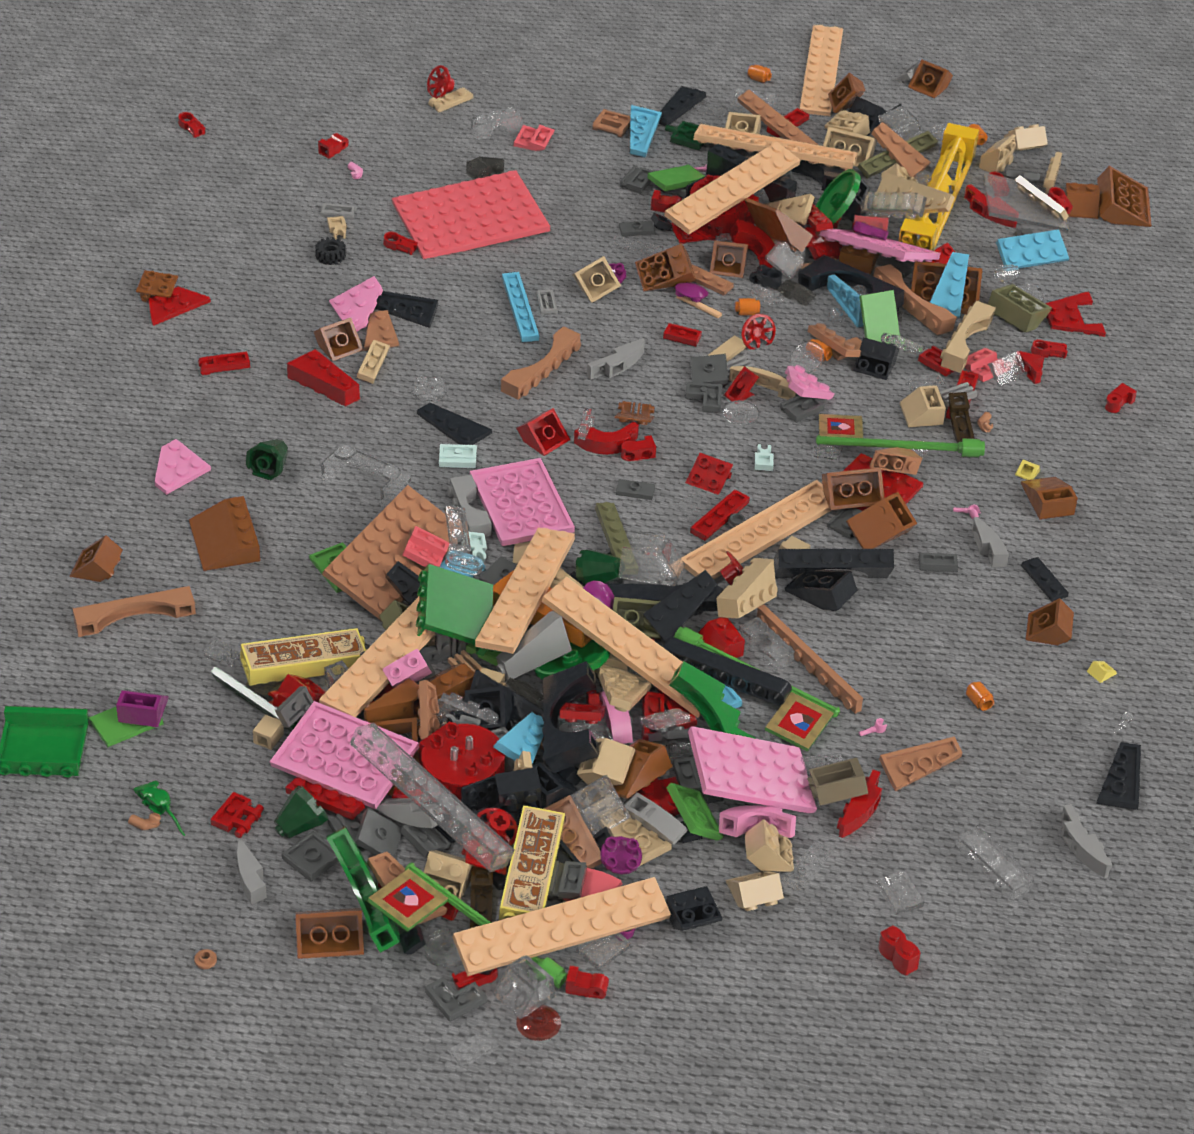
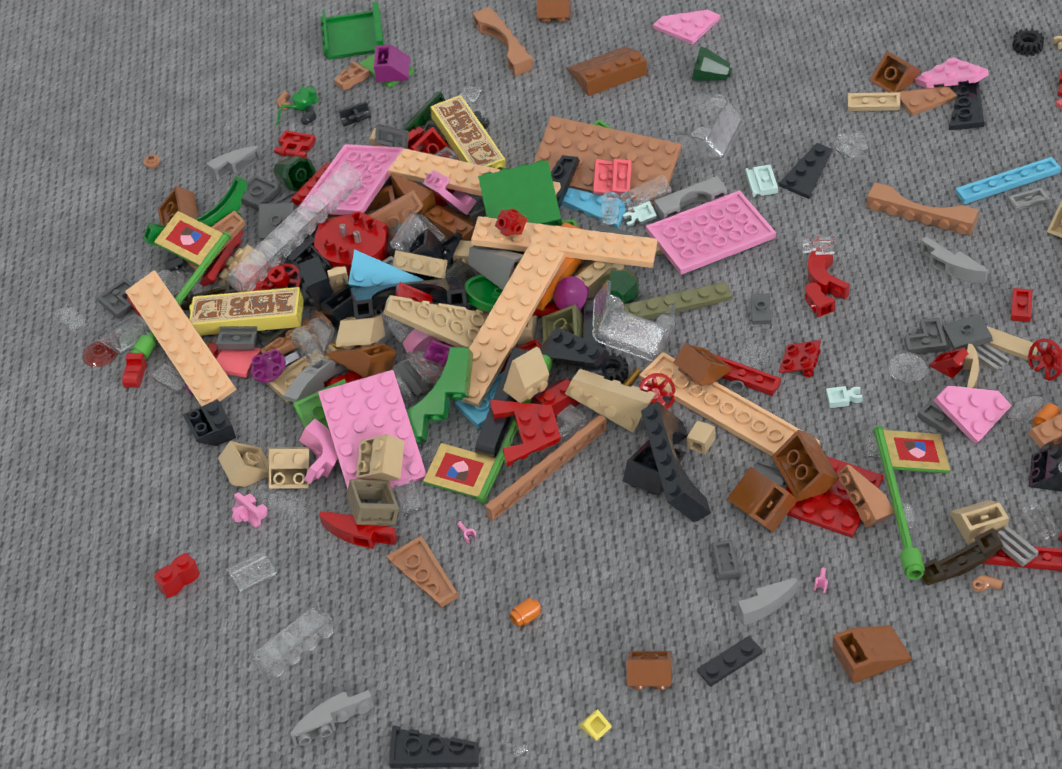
camera: 90 degrees right, 5 degrees up
(128, 752) = (352, 76): none -> nougat wing
(183, 797) = (309, 116): none -> black arm
(208, 752) = (354, 113): none -> black hips
(224, 362) = (833, 18): red plate -> none
(323, 377) = (834, 75): red wedge -> none
(512, 605) = (510, 222): none -> red brick
(519, 703) = (420, 264): none -> tan plate
(544, 432) = (813, 224): red slope -> none
(641, 418) = (866, 287): dark orange hinge -> none
(661, 699) = (437, 352): none -> magenta hips
(714, 530) = (700, 364): none -> dark orange slope
(719, 635) = (527, 376): none -> tan slope
(773, 648) = (535, 427): none -> red wing
(791, 763) = (380, 458): none -> tan slope
(818, 890) = (246, 510): none -> bright pink hips
(1027, 470) = (915, 632): light yellow slope -> none

